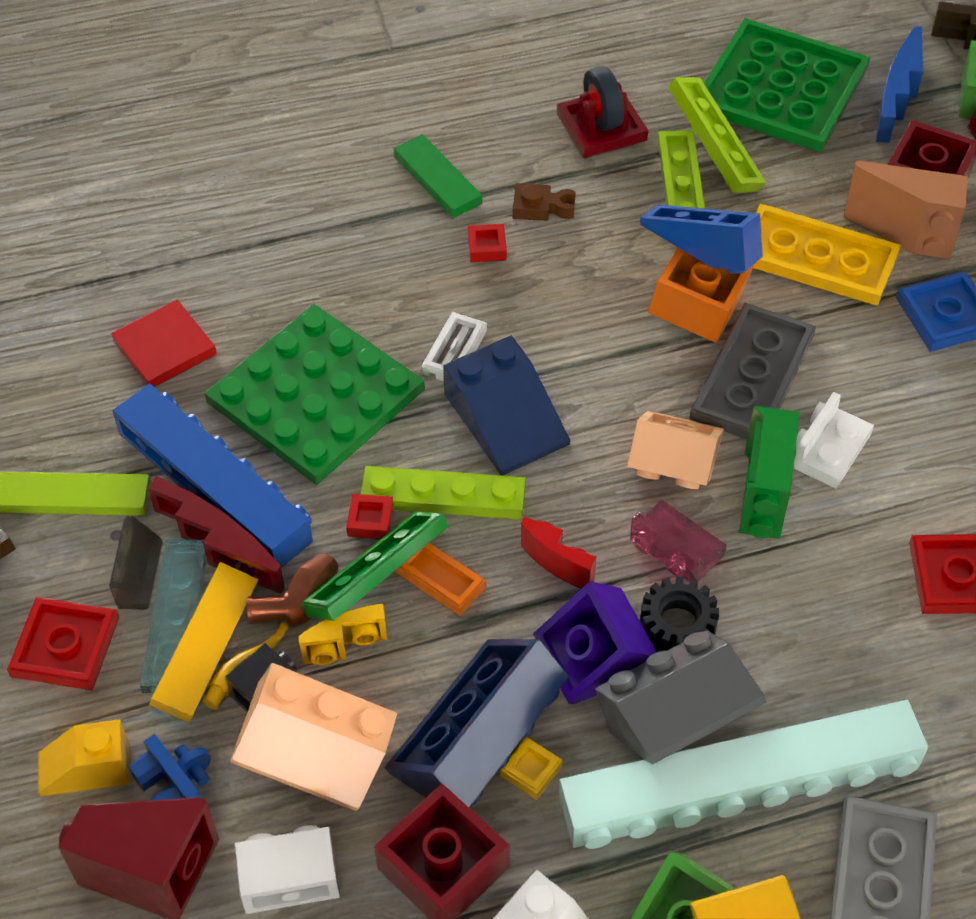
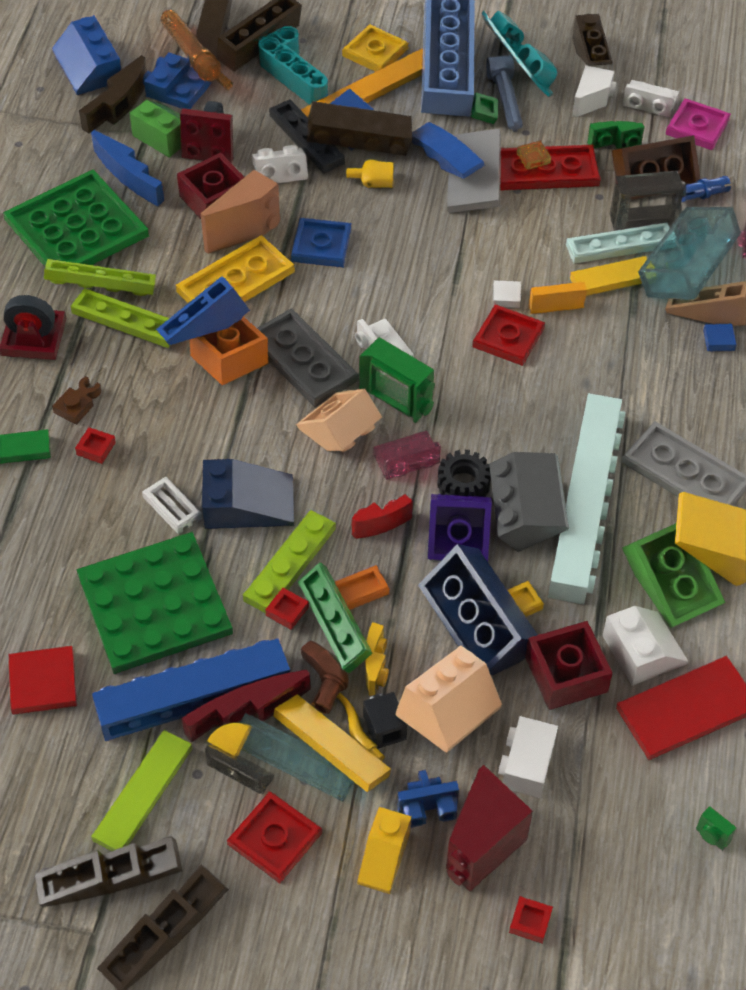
camera: 65 degrees left, 0 degrees up
(160, 538) = (230, 737): none -> yellow tile

